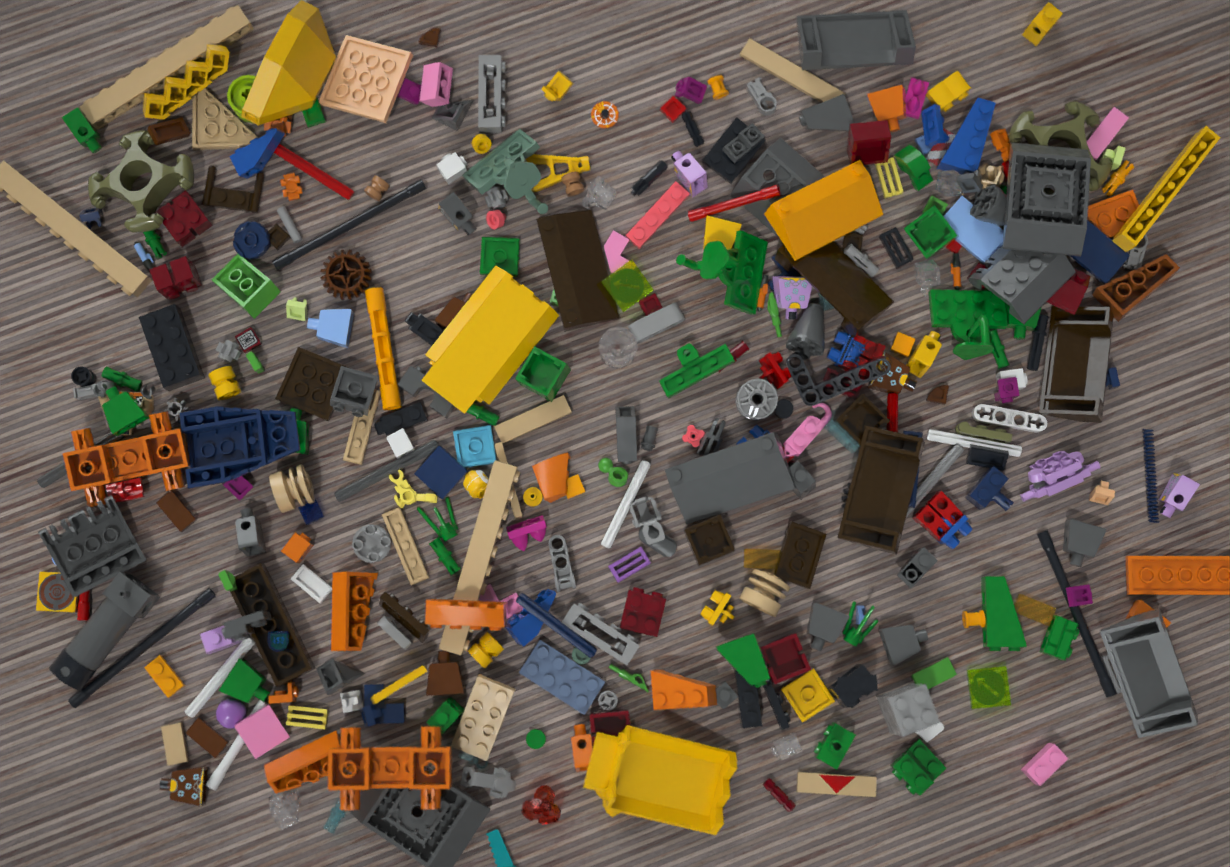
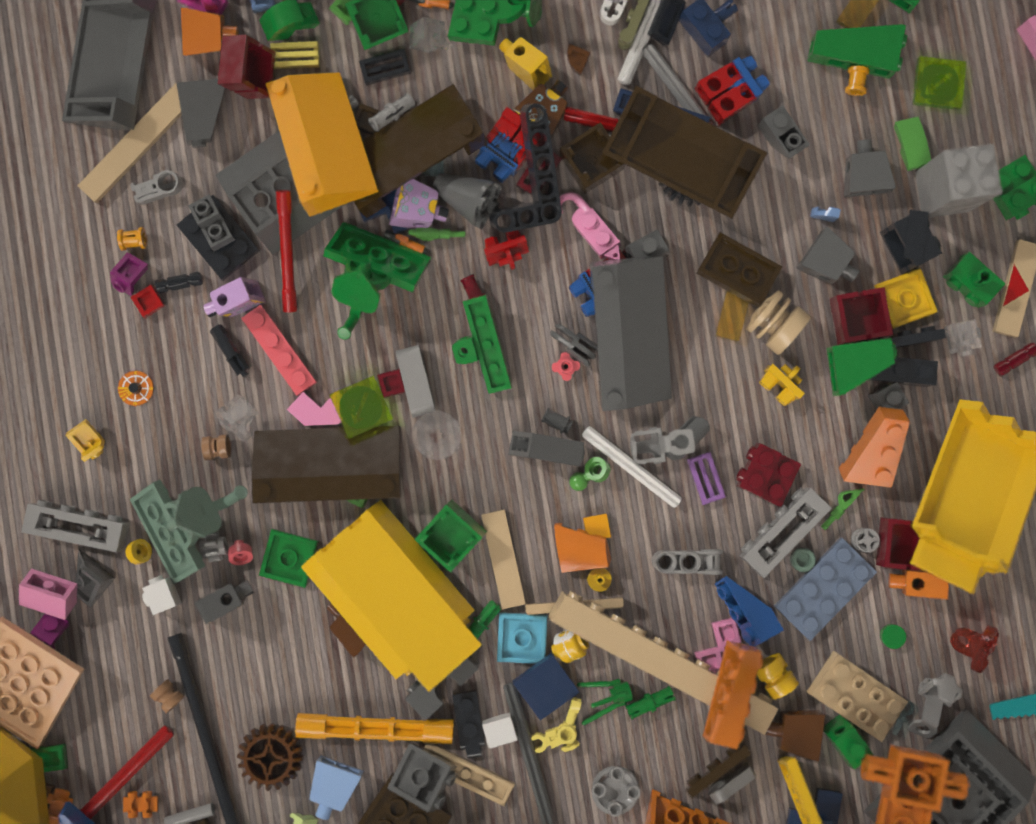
camera: 75 degrees left, 5 degrees up
(405, 546) = (627, 748): tan tile -> none
(423, 328) = (359, 672): black hinge -> none
(518, 532) = (638, 604): dark pink tile -> none
(550, 160) = (180, 469): yellow plate -> none
(556, 625) = (766, 584): dark blue axle -> none
(709, 540) = (699, 375): dark brown container -> none
(720, 230) = (318, 277): yellow torso -> none
(766, 394) = (547, 267): light grey wheel -> none
(783, 409) = (555, 249): black tile -> none
(842, 436) = (605, 185): clear light blue tile -> none
(854, 635) = (847, 227): green plant -> none
(902, 344) = (506, 87): light orange tile -> none

